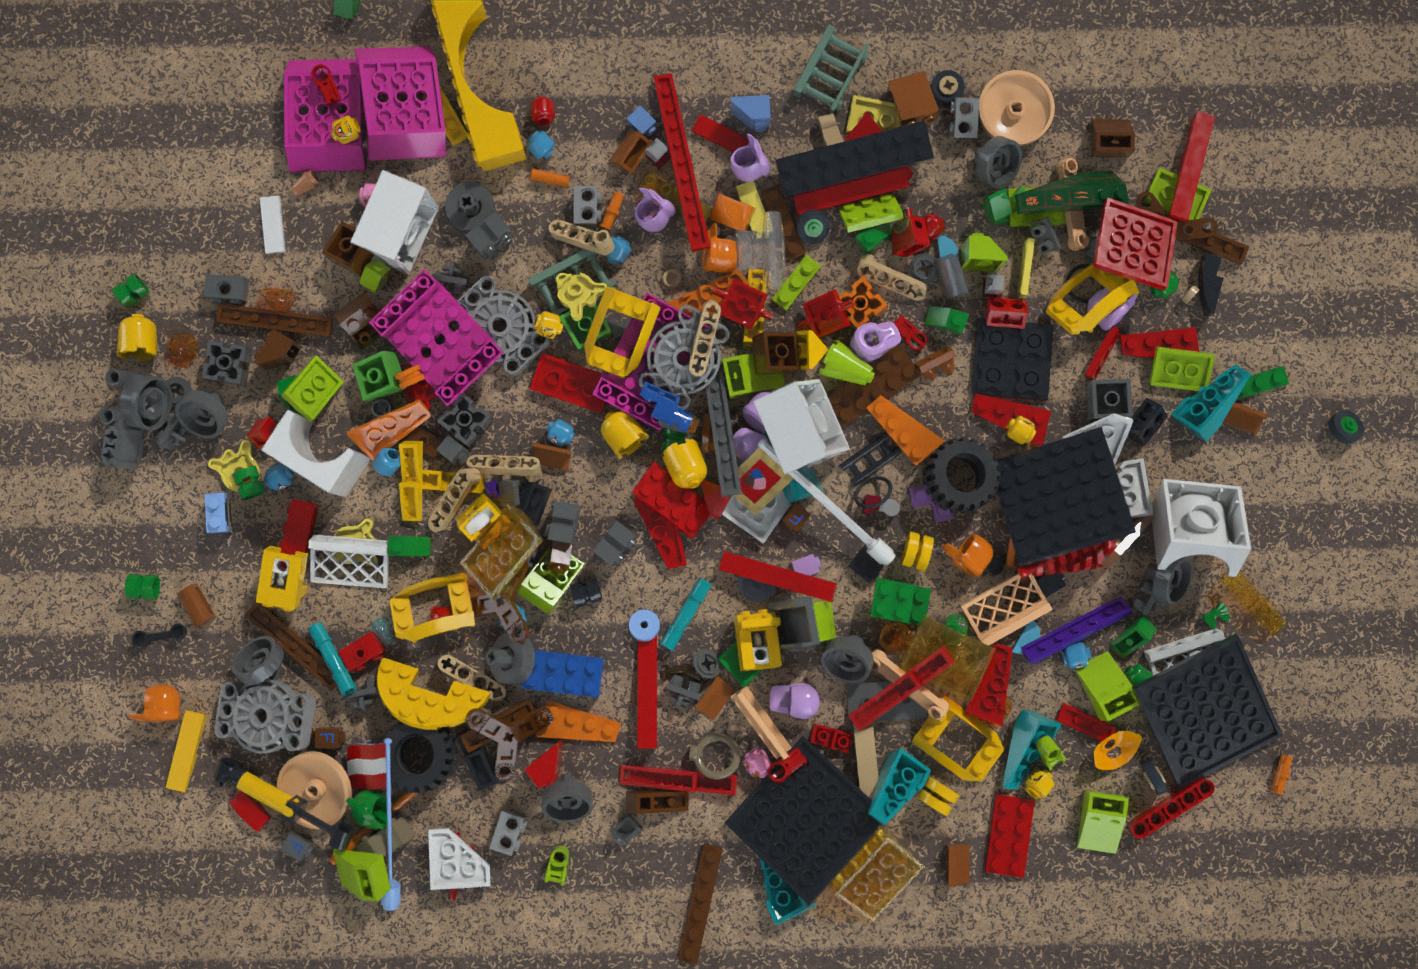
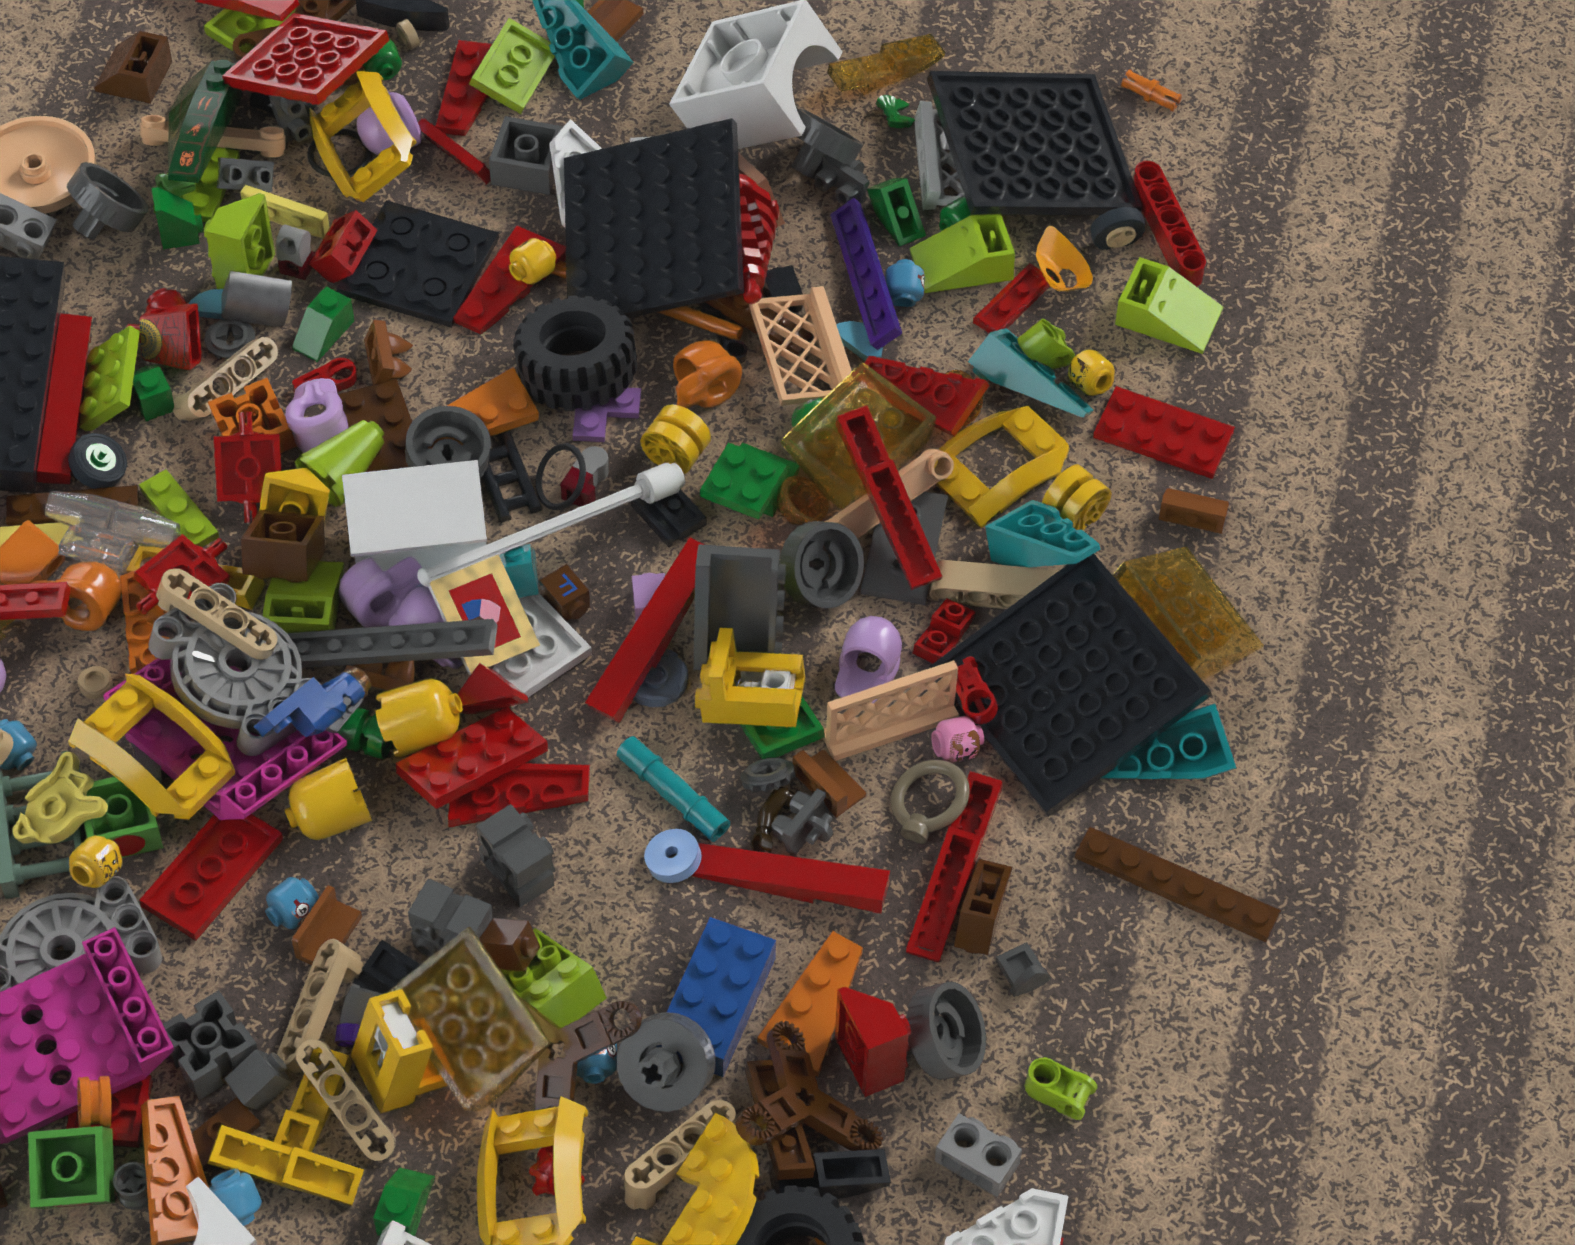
camera: 75 degrees left, 30 degrees down
(586, 592) = (586, 924): black wheel -> none
(860, 412) = (447, 422): none -> dark grey piece
(1146, 421) = (567, 106): black brick -> none

